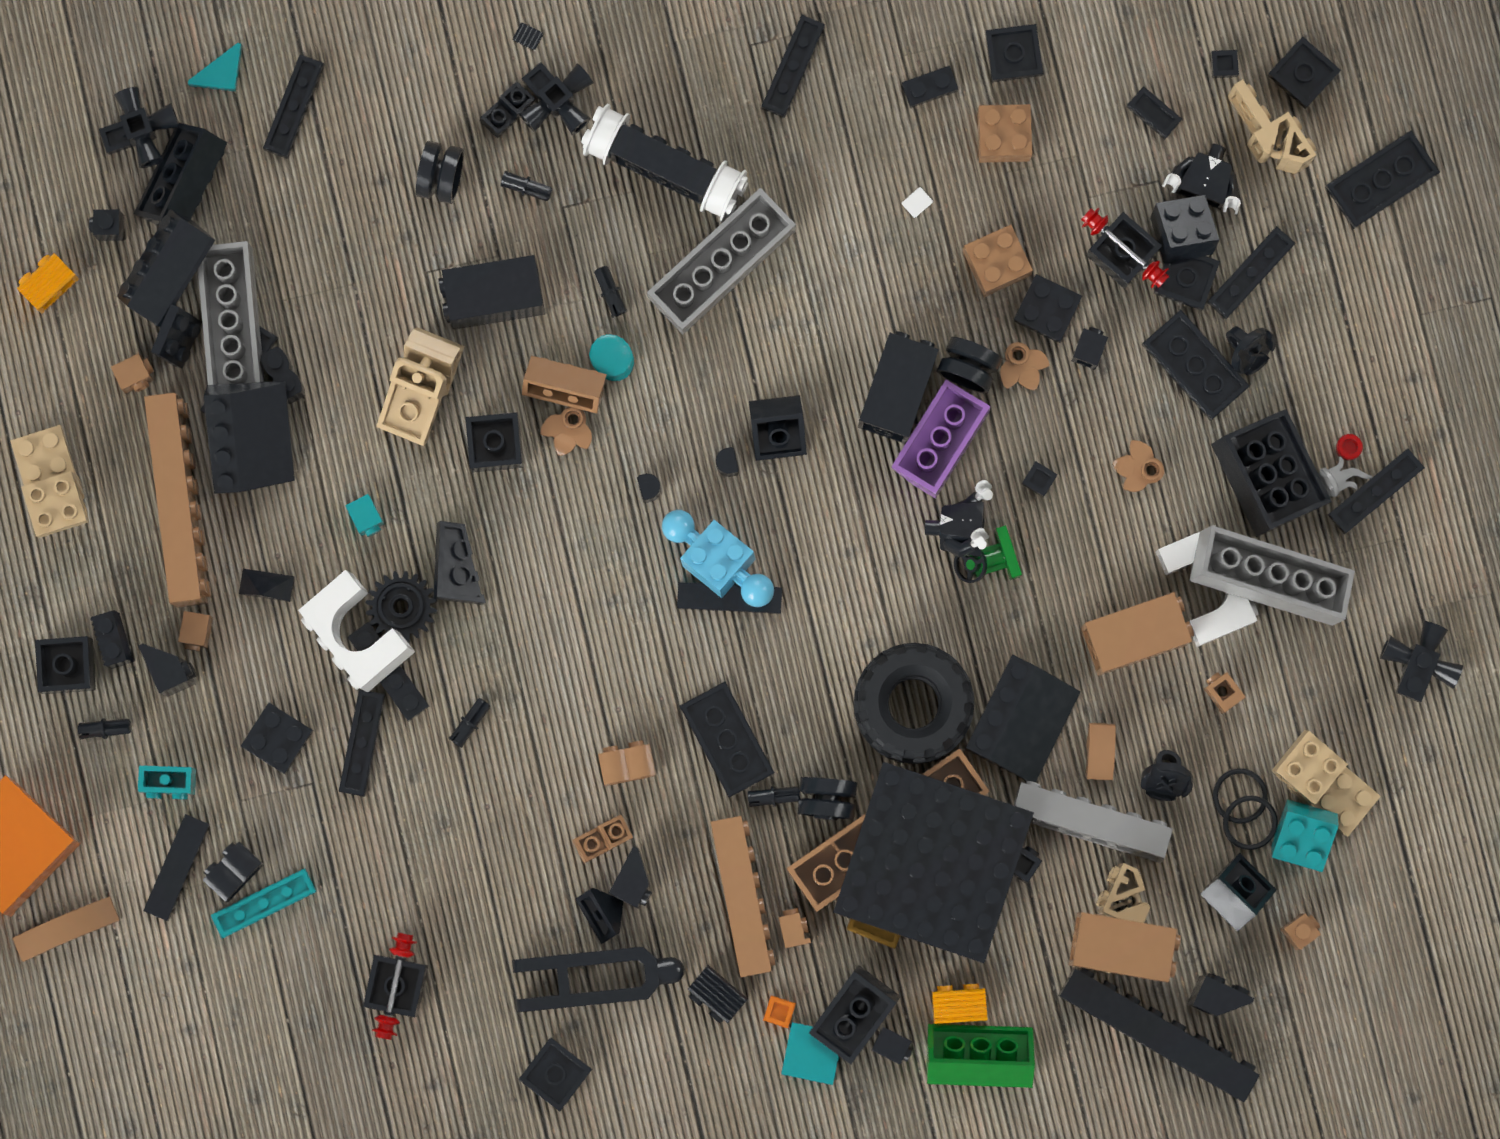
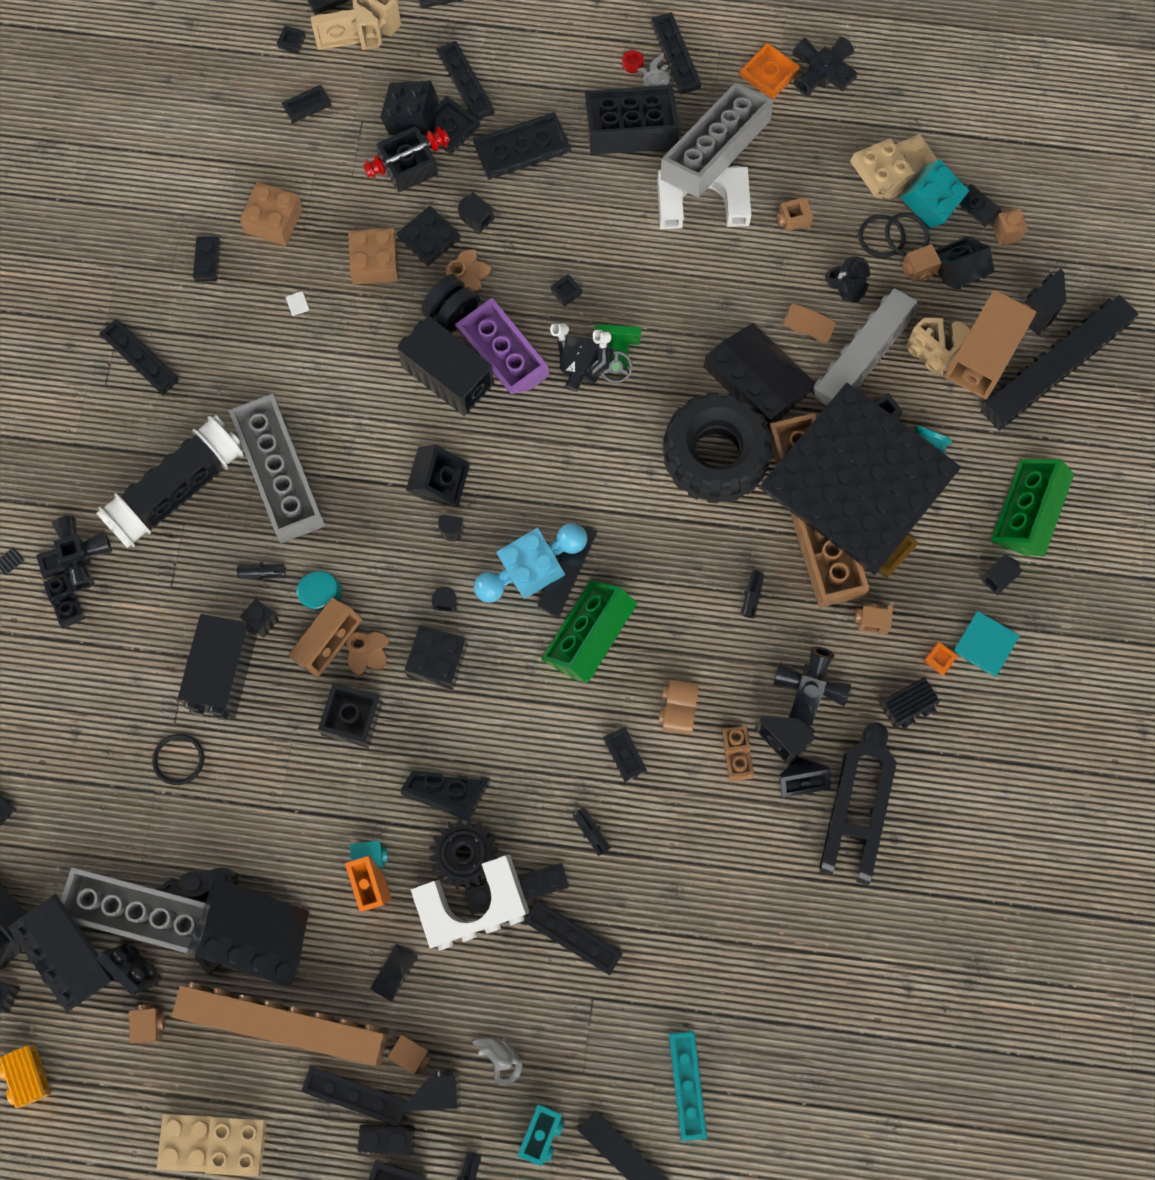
camera: 70 degrees left, 10 degrees down
(140, 594) = (354, 1096): none -> black plate
(224, 718) = (502, 1057): none -> light grey piece
(232, 871) = (648, 1103): black brick -> none
(277, 738) = (538, 1015): black plate -> none
(336, 527) = (367, 883): none -> orange slope
(392, 268) = (193, 775): none -> black tyre
(395, 986) = (809, 986): black brick -> none
(419, 385) = (272, 763): tan piece -> none
(439, 172) = (90, 673): black wheel -> none
(526, 186) = (138, 608): black axle -> none
(555, 1074) = (935, 871): black plate -> none
(558, 726) = (624, 754): none -> black plate
(559, 310) = (259, 617): none -> black brick
(585, 502) = (436, 657): none -> black brick
(671, 644) = (589, 630): none -> green slope
(696, 887) = (811, 685): none -> black brick
(727, 739) = (688, 616): black tile -> none
(741, 896) = (851, 655): medium nougat brick -> none
(827, 798) = (772, 546): black wheel -> none
(854, 1014) = (966, 593): black slope -> none
(959, 1005) = (984, 507): light orange brick -> none
(1009, 925) = (934, 438): none -> teal piece
(1014, 53) = (209, 185): black plate -> none
(1134, 467) = (585, 217): medium nougat plate -> none
(1137, 633) = (724, 258): medium nougat brick -> none
(1207, 177) = (373, 79): black torso -> none
(1217, 849) = (921, 263): none -> medium nougat brick
(1250, 349) = (525, 98): black tile -> none
(1312, 889) = (979, 206): none -> black plate
(1397, 603) = (770, 71): none -> orange tile

